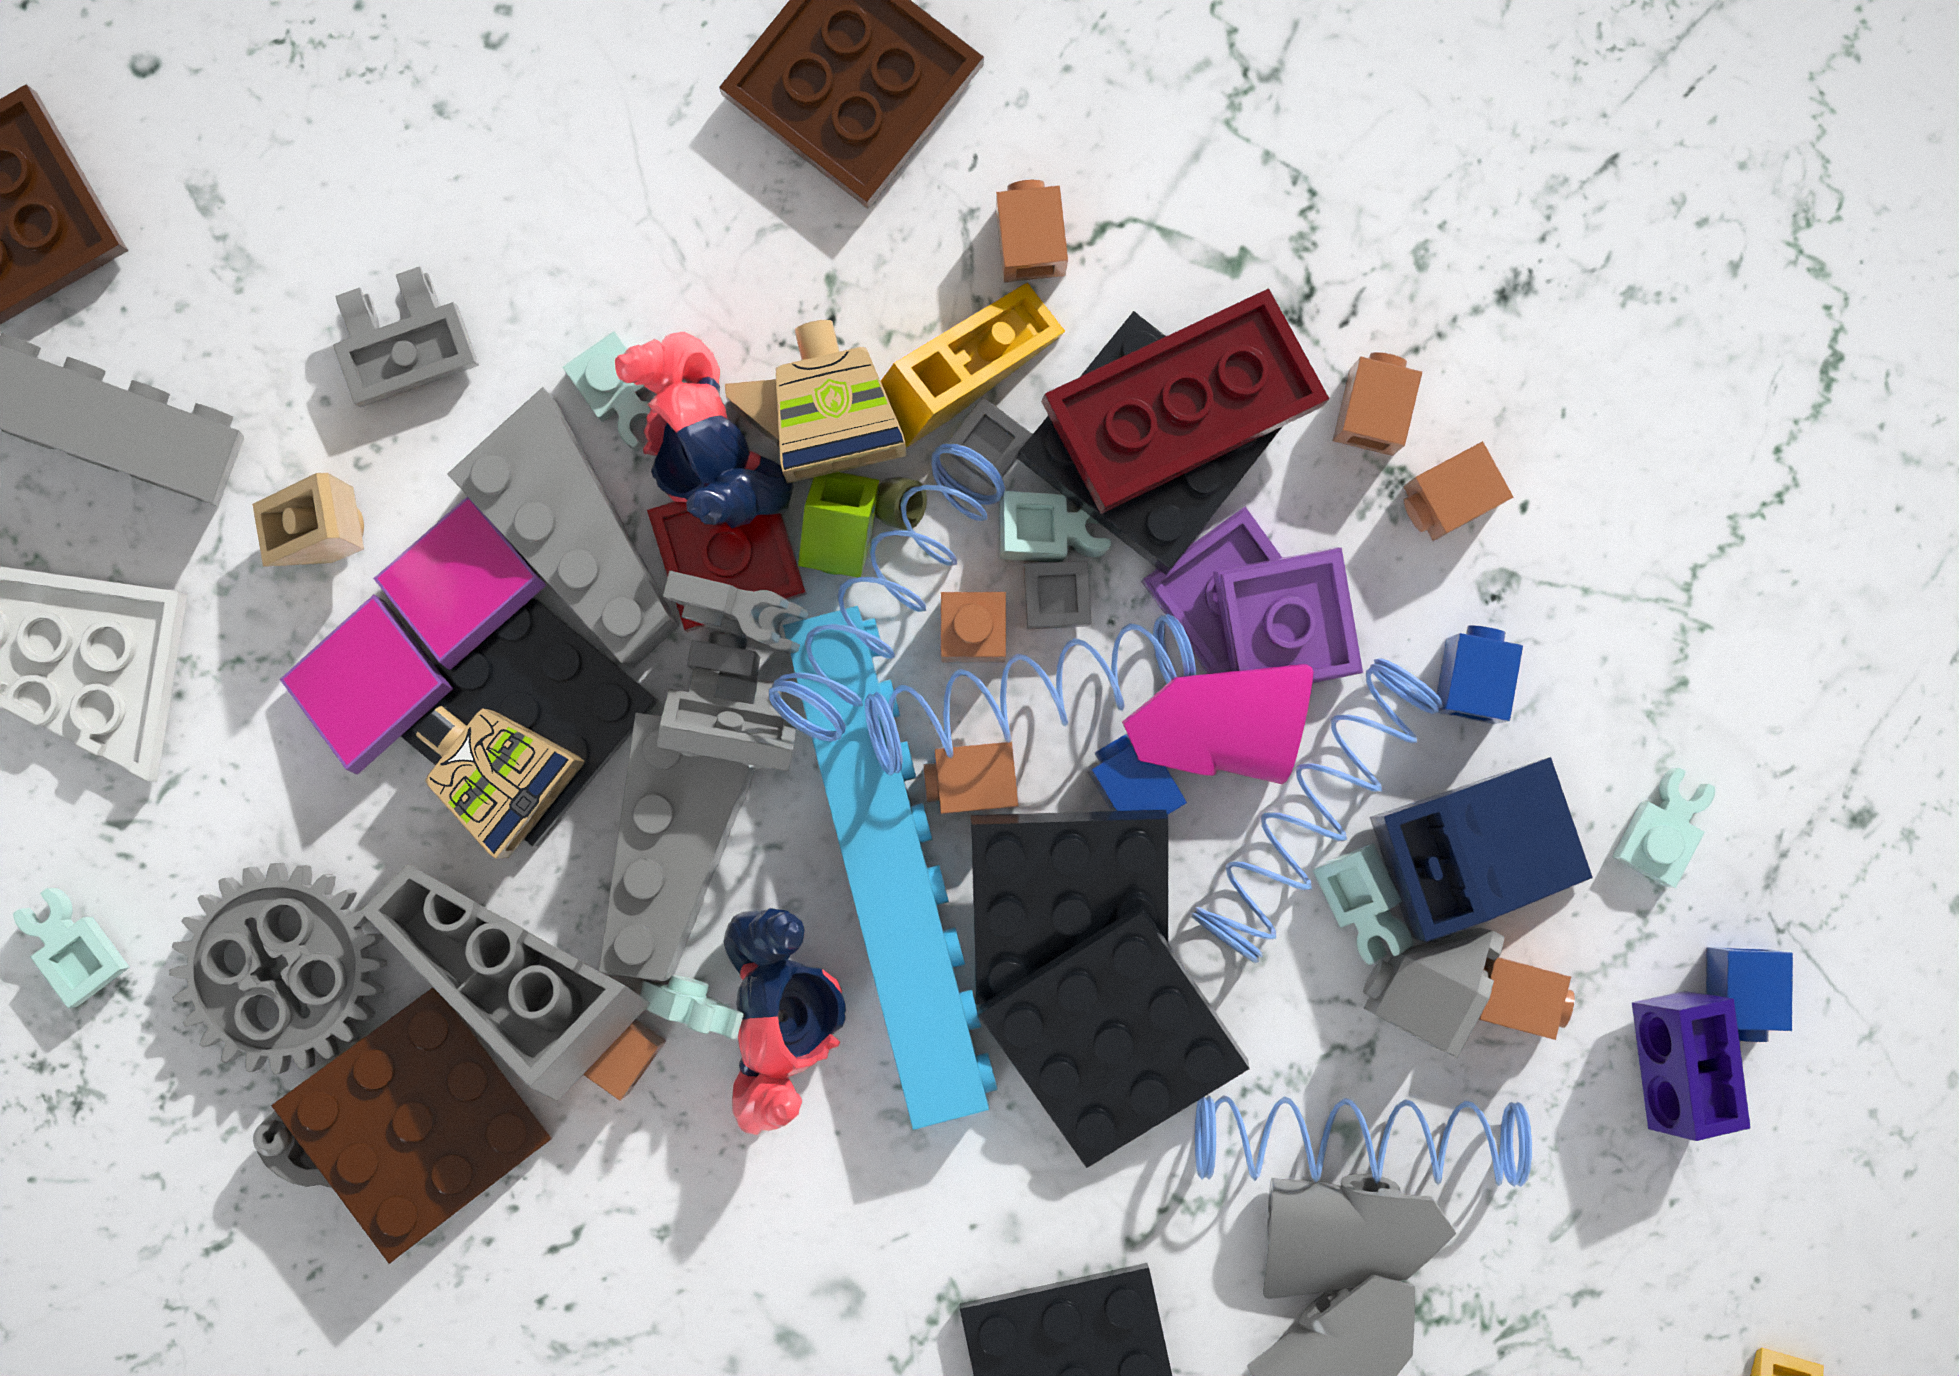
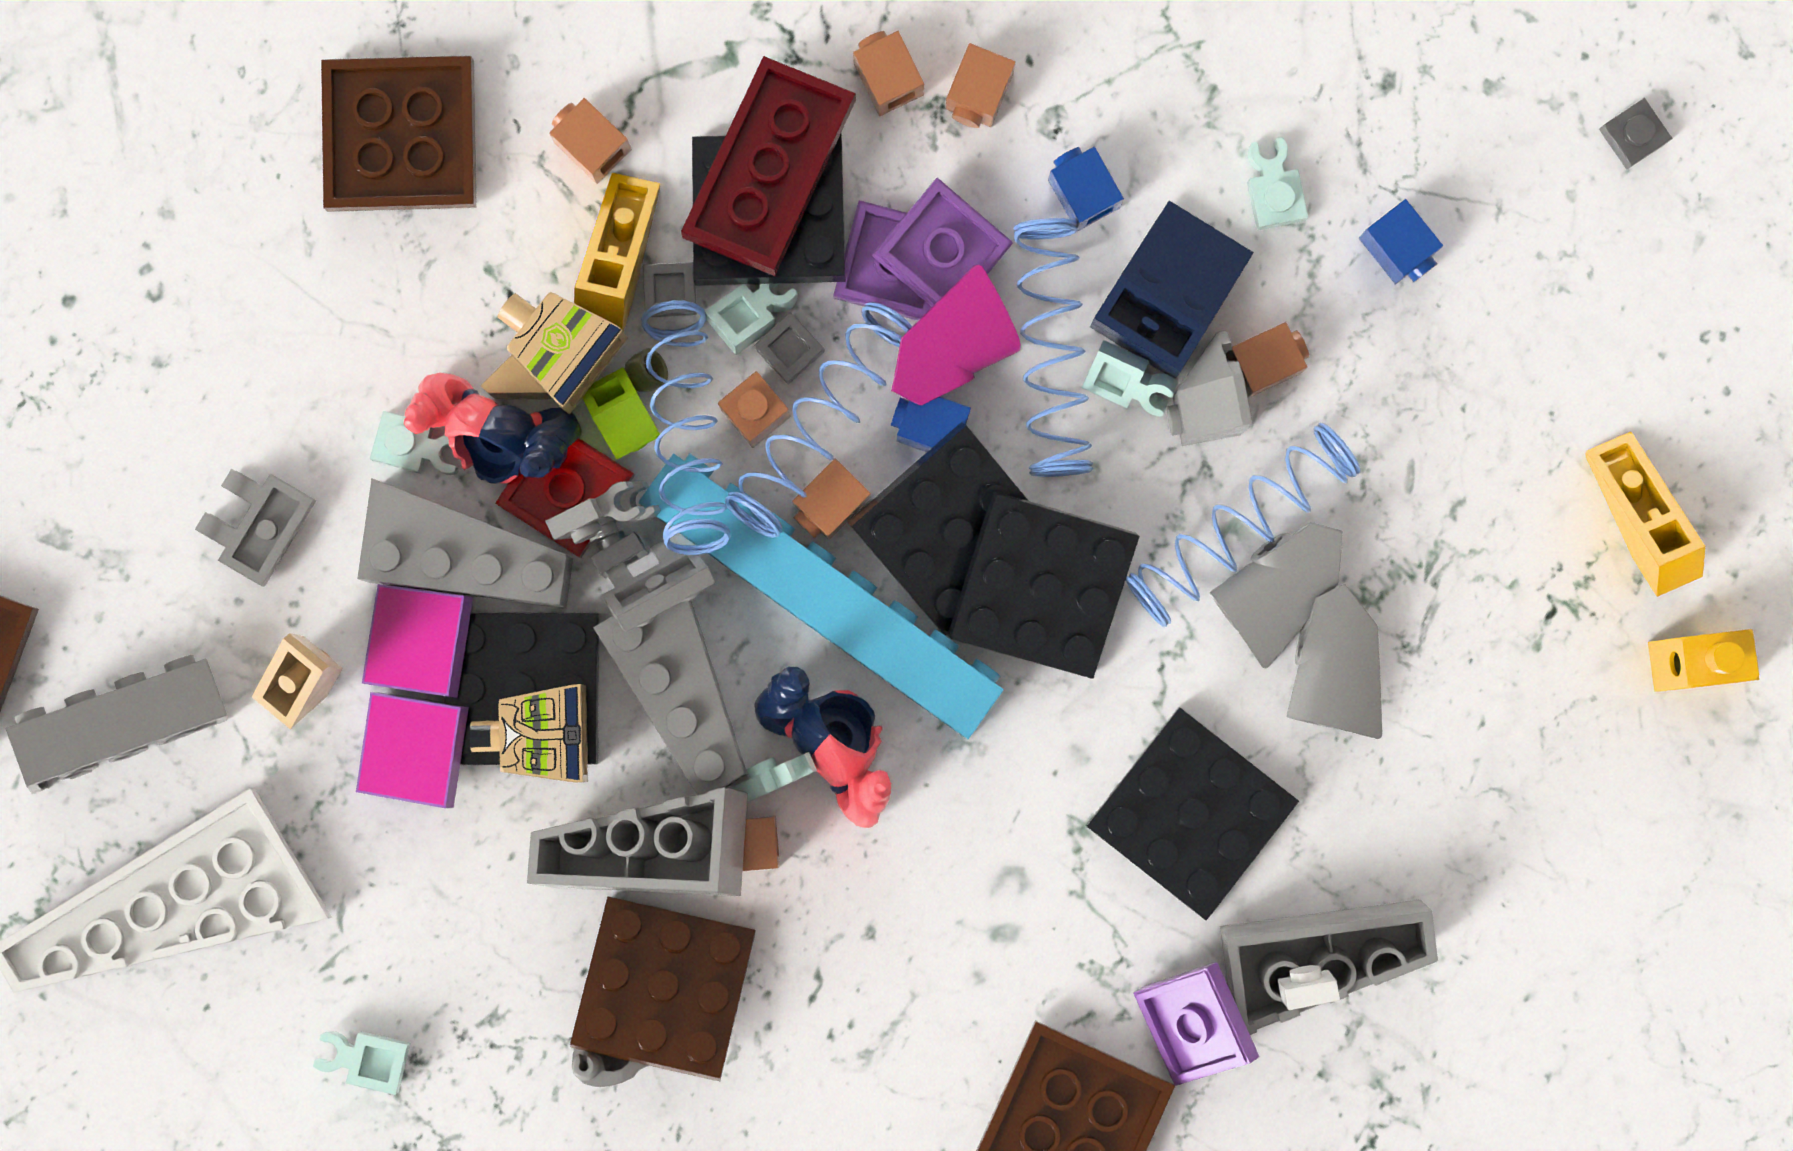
camera: 35 degrees left, 0 degrees up
(230, 1000) = (489, 1010): light grey gear -> none
(1691, 1065) = (1401, 316): dark purple brick -> none

